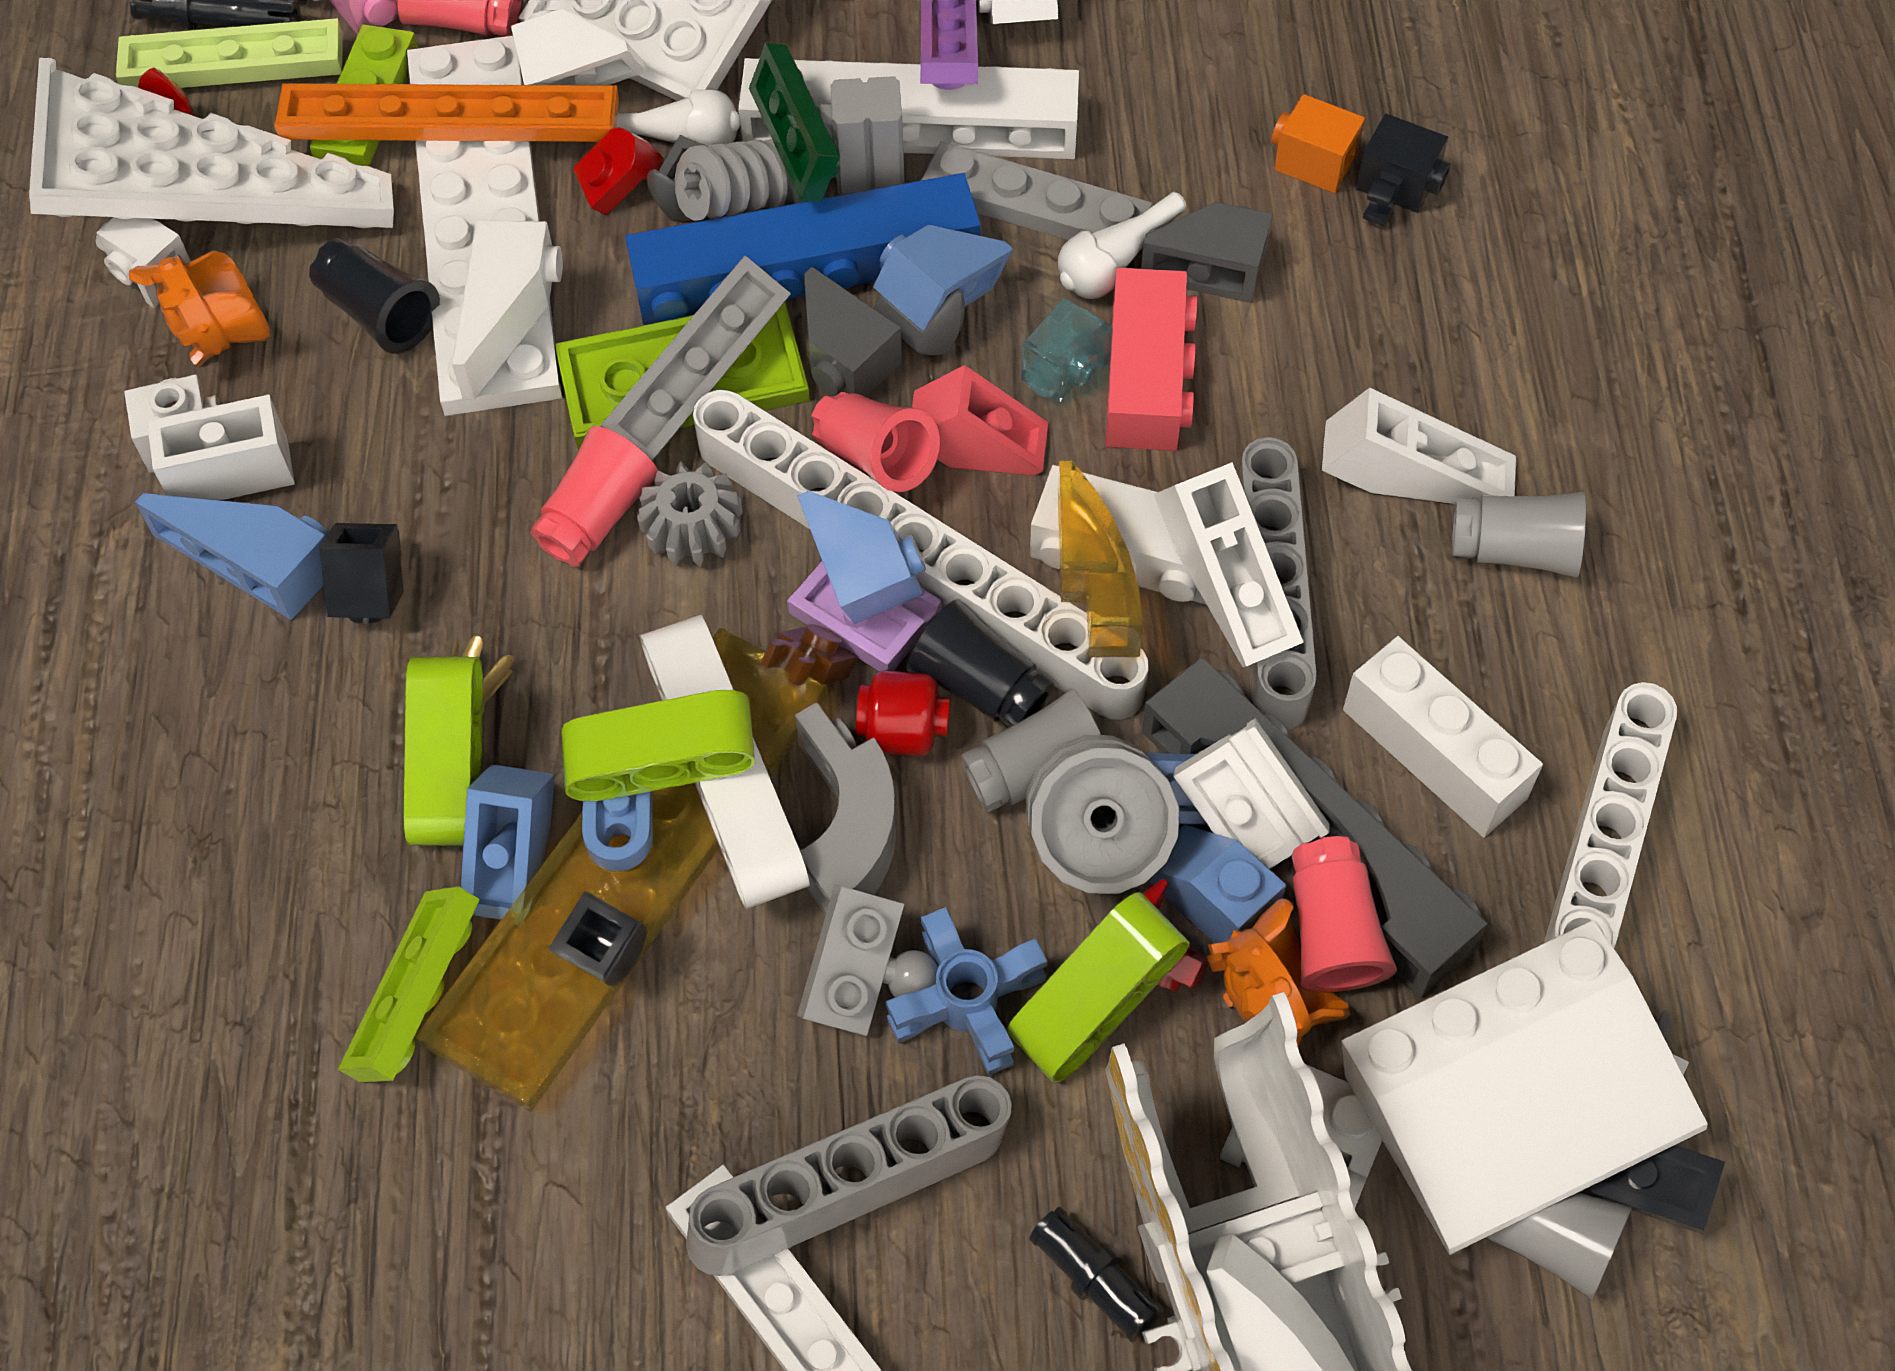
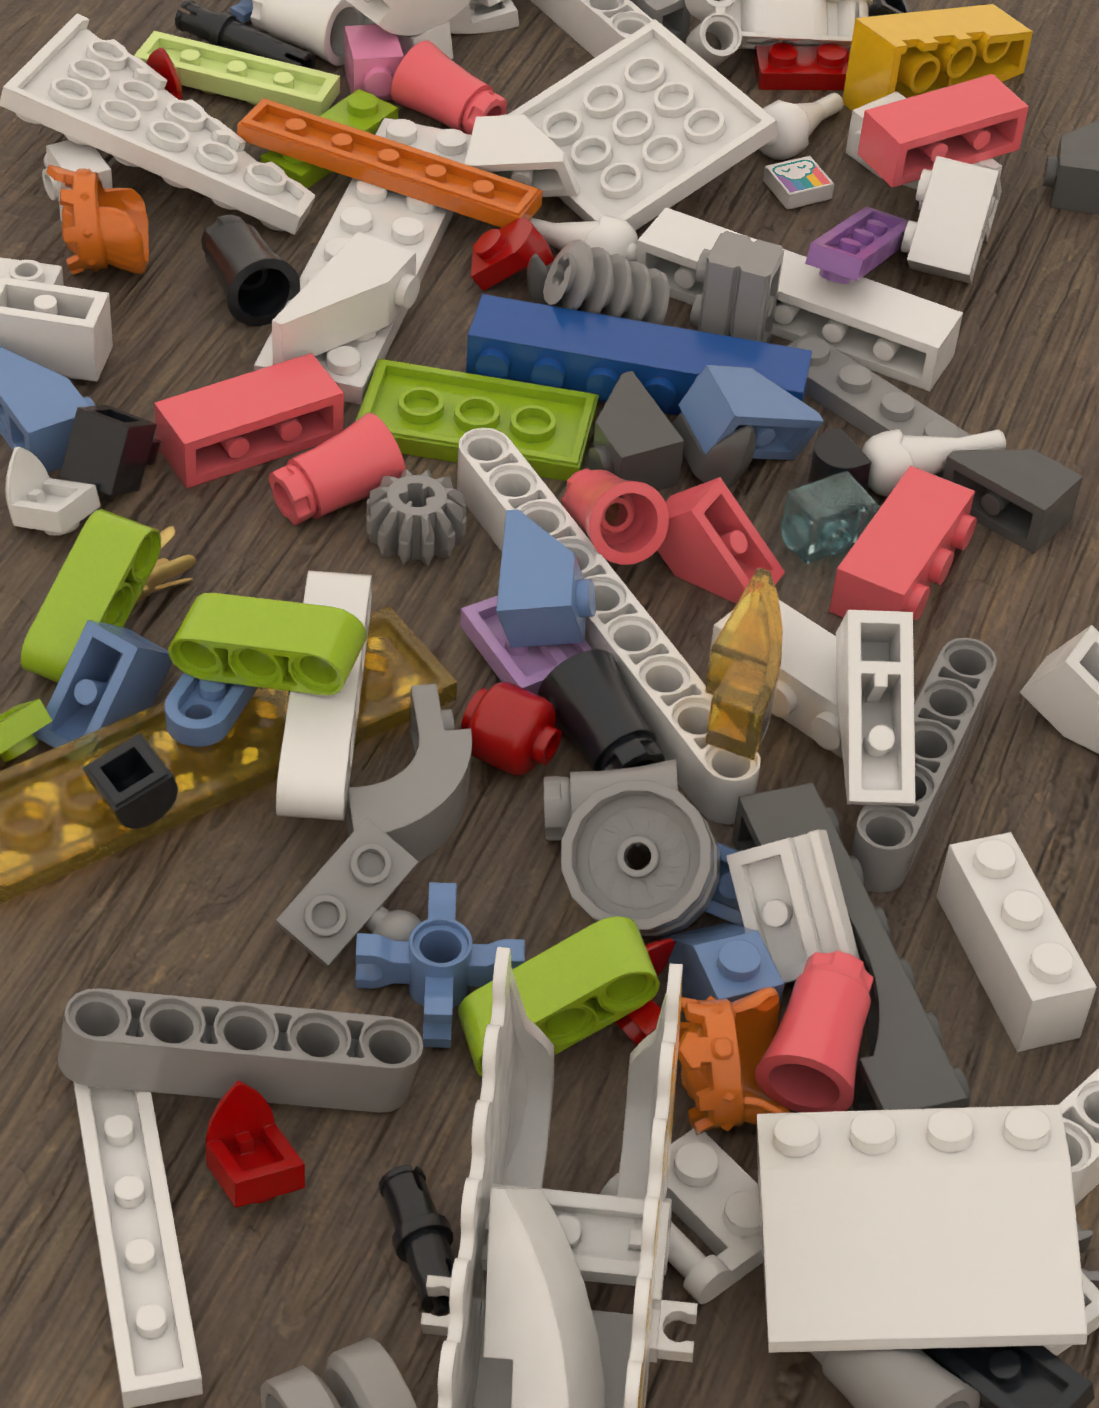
camera: 20 degrees right, 15 degrees down
(328, 649) = (43, 501): none -> white plate
(472, 470) = (249, 420): none -> coral brick
(697, 358) = (491, 399): light grey plate -> none
(794, 122) = (675, 255): dark green plate -> none
(809, 653) = (459, 653): reddish brown plate -> none
(907, 1265) = (249, 1150): none -> red plate
(1041, 289) = (835, 454): none -> black brick

